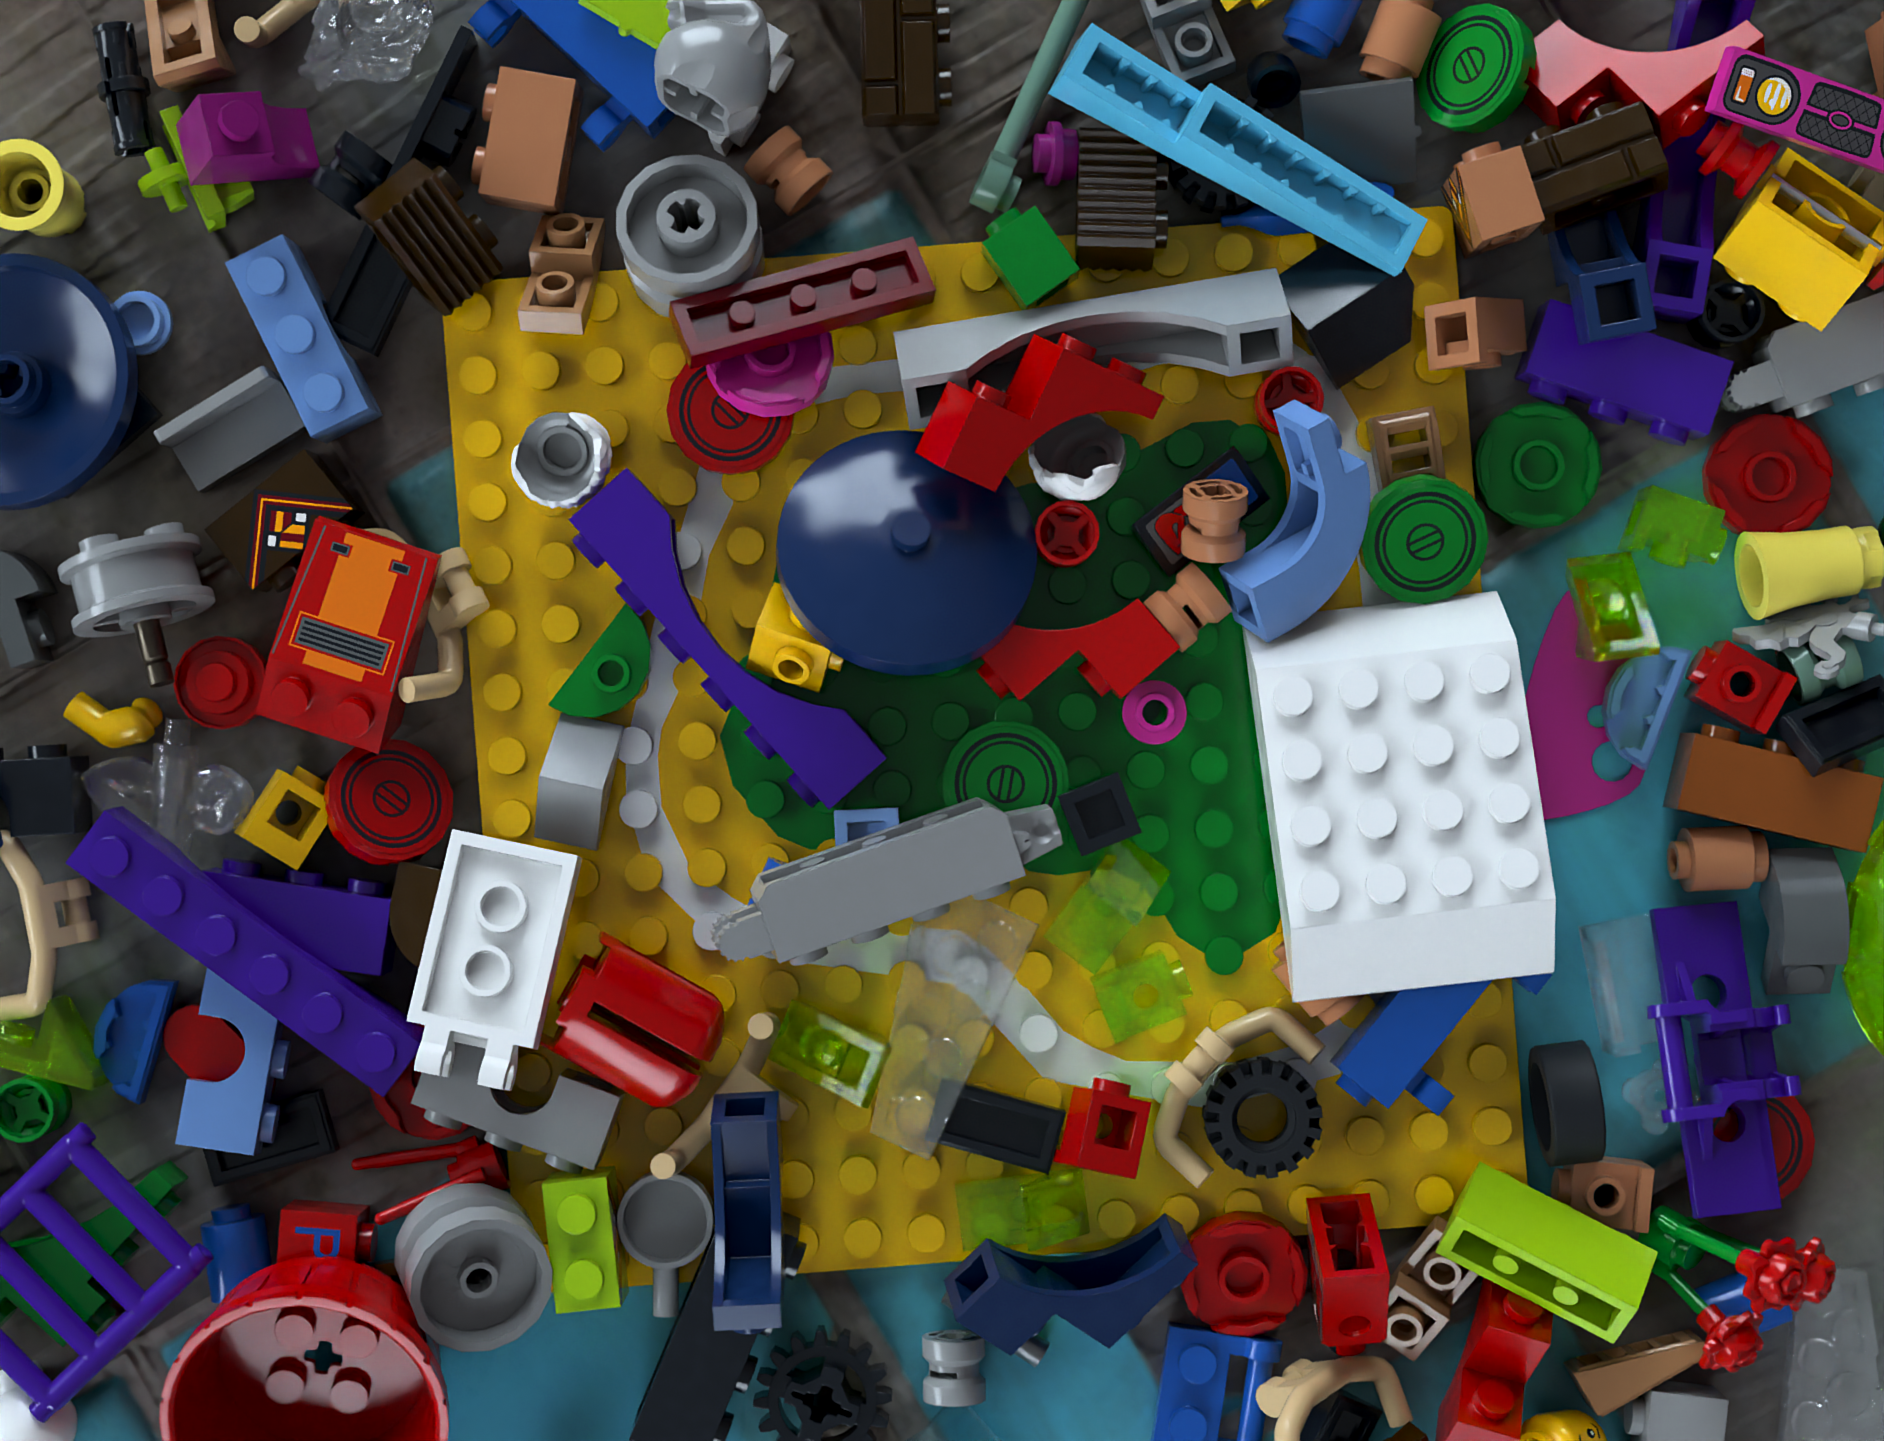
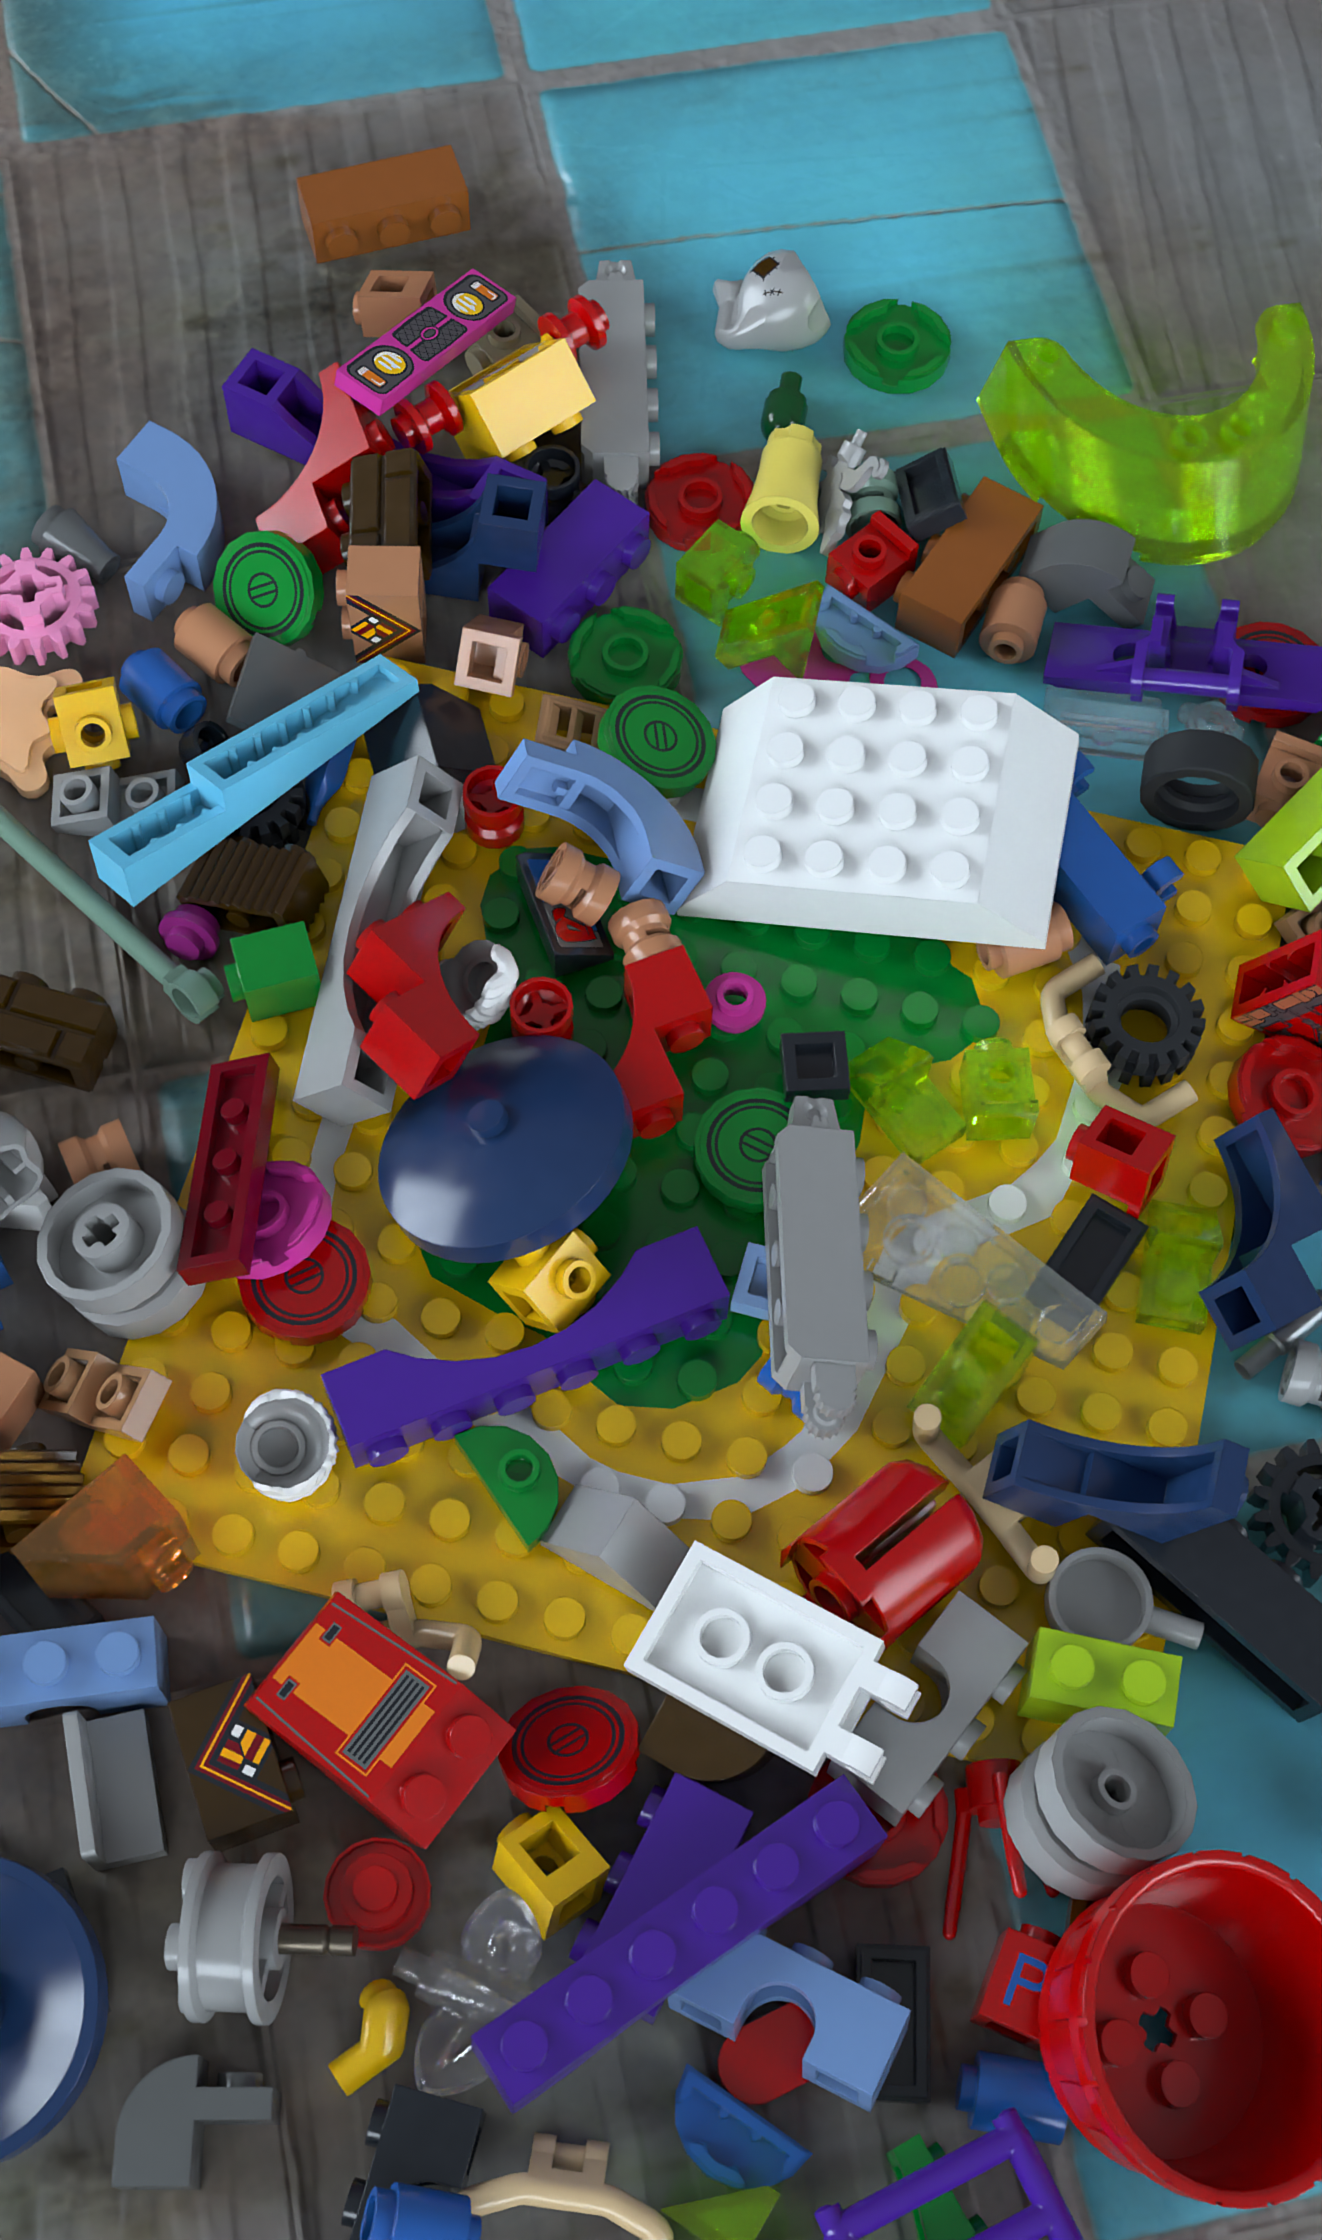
camera: 75 degrees left, 25 degrees down
(414, 351) = (110, 1541): none -> clear orange slope

